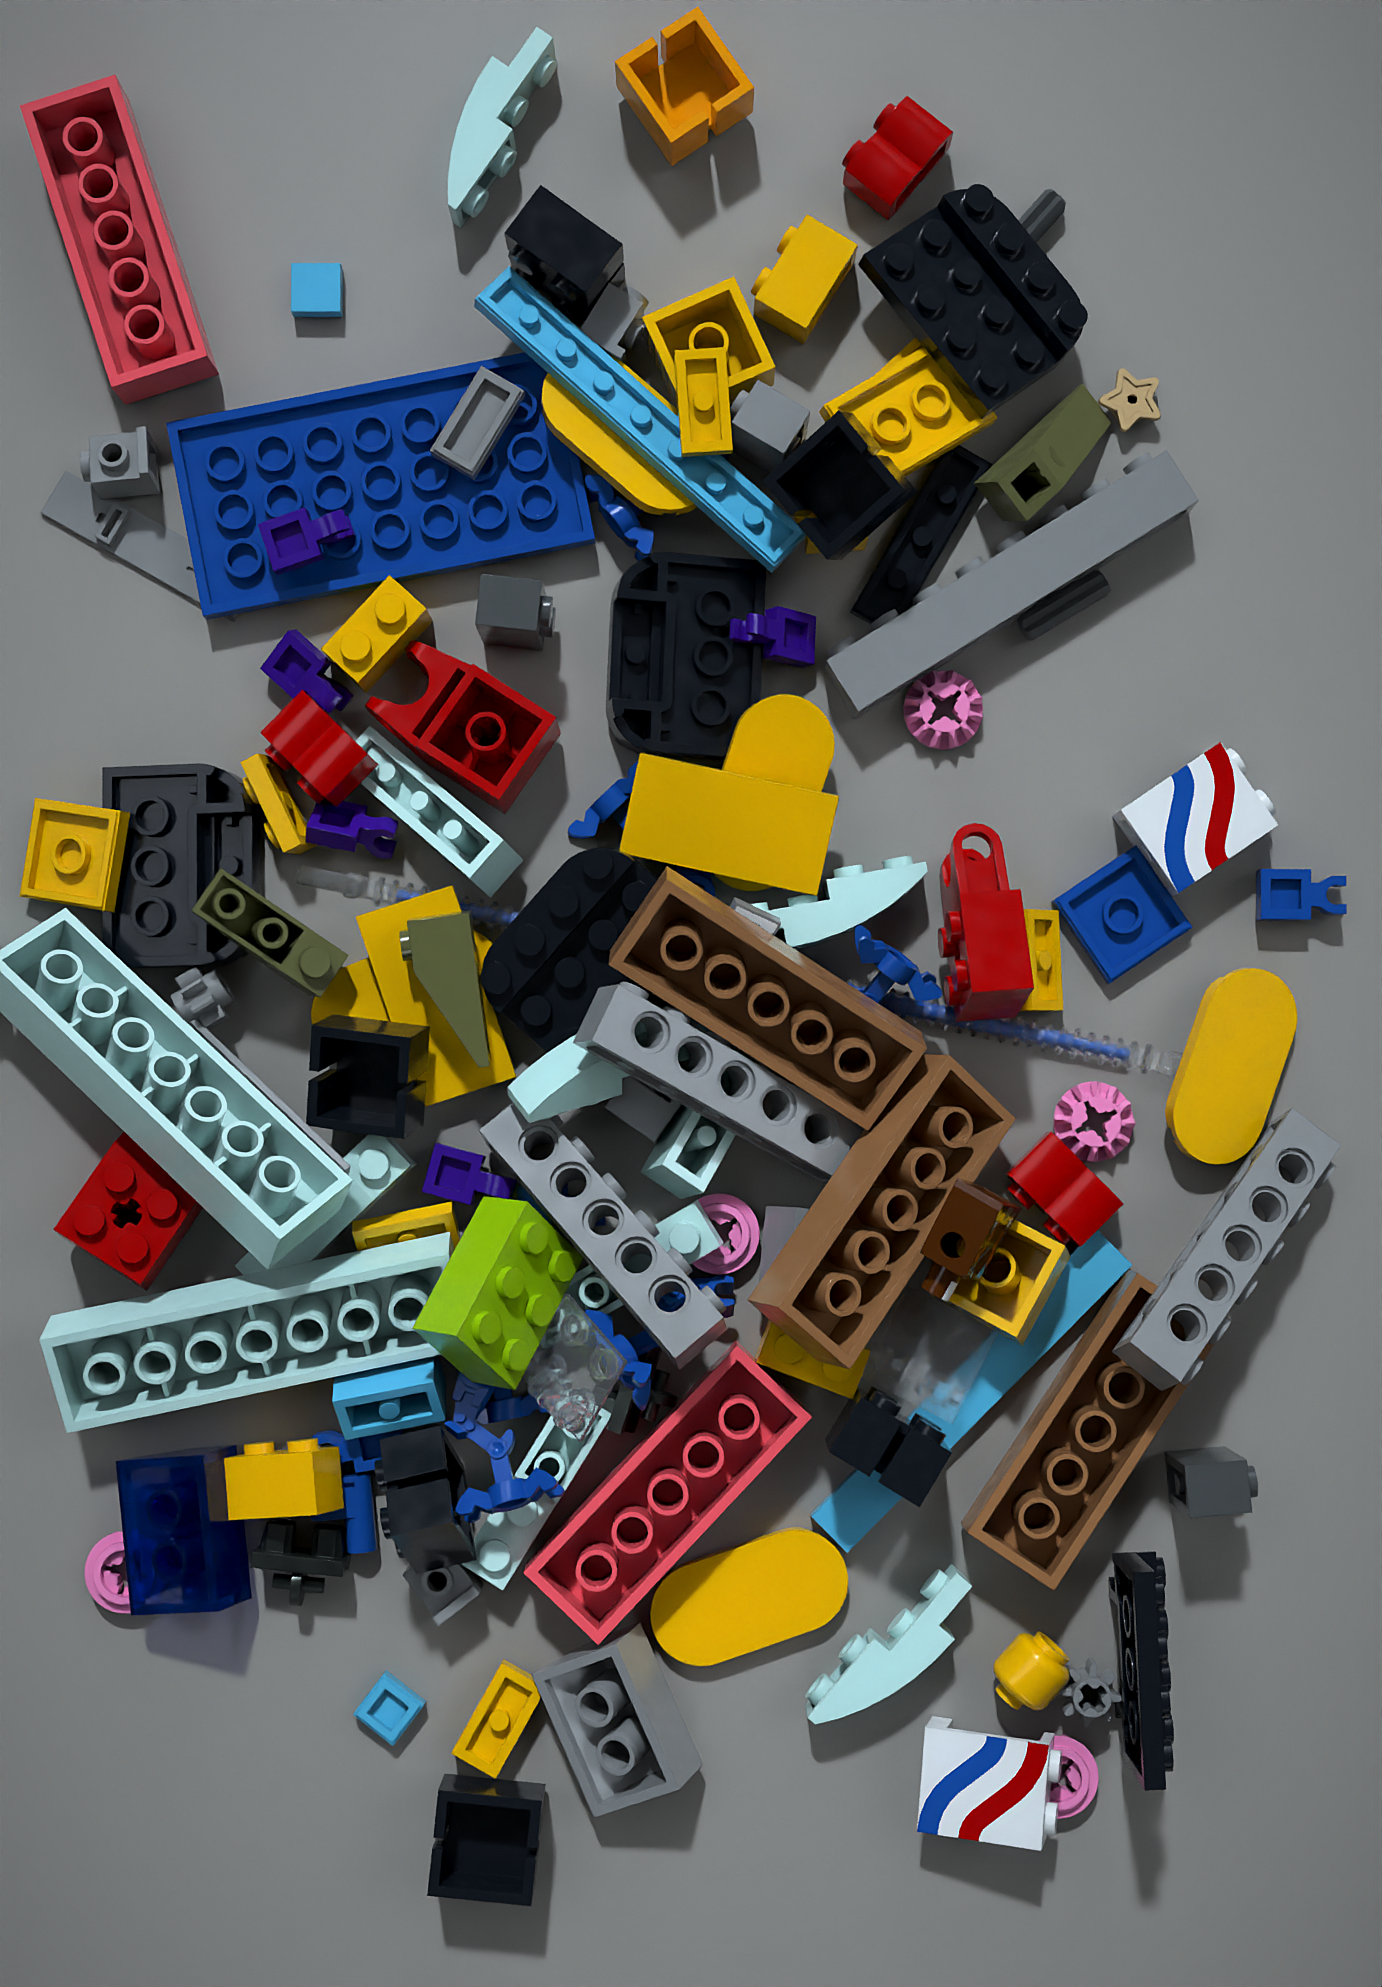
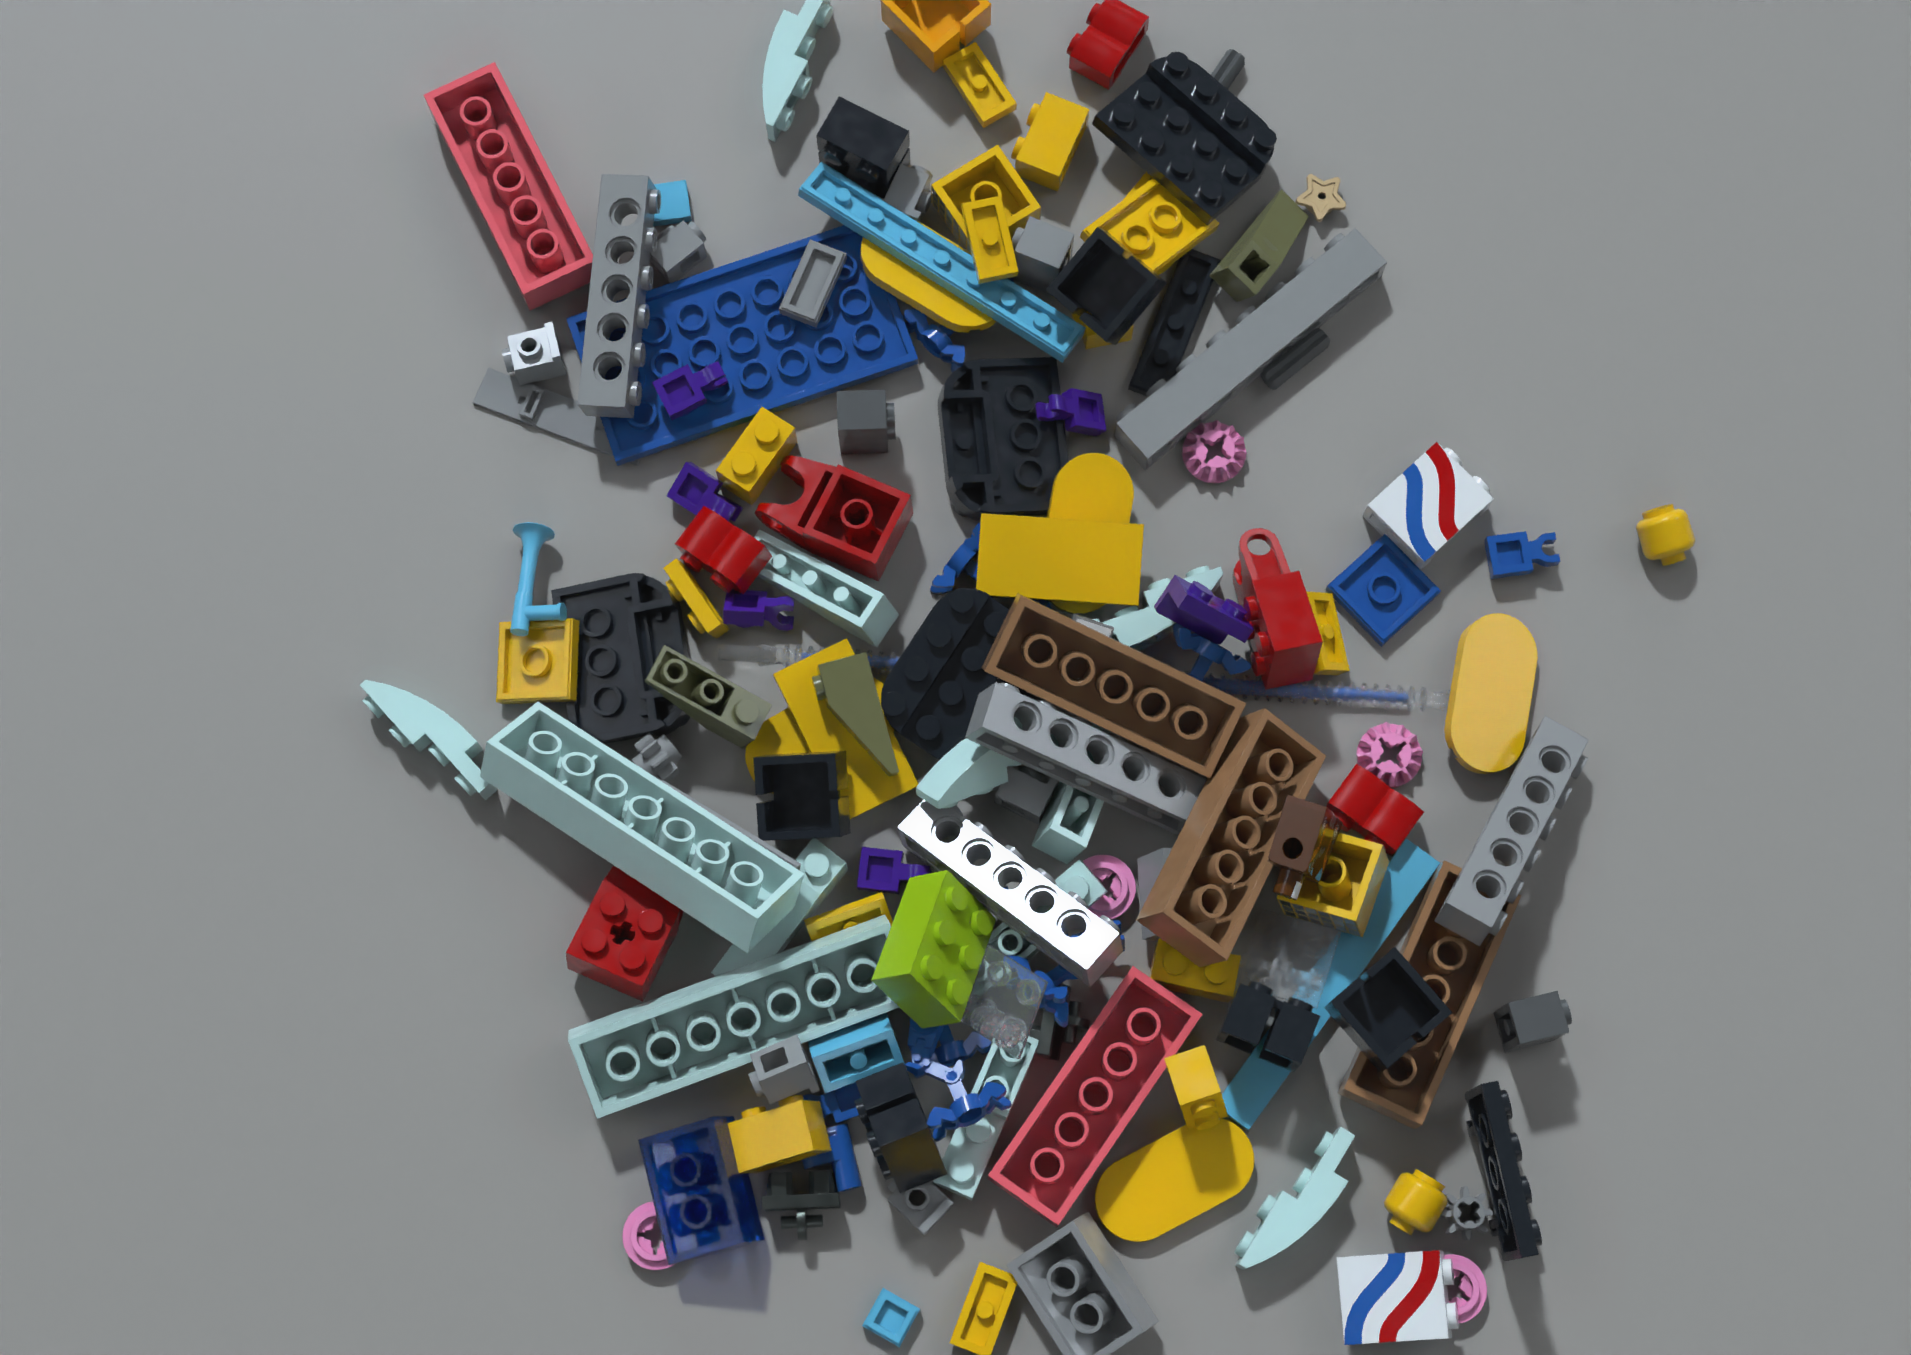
camera: 10 degrees left, 10 degrees down
(63, 793) = (532, 538): none -> medium azure piece
(243, 280) = (617, 199): none -> light grey brick
(295, 1411) = (782, 1070): none -> light grey brick
(316, 353) = (678, 250): none -> light grey brick
(726, 190) = (979, 84): none -> yellow plate
(789, 1506) = (1196, 1088): none -> yellow brick
(895, 920) = (1202, 612): none -> dark purple bracket
(1036, 1453) = (1387, 1009): none -> black piece

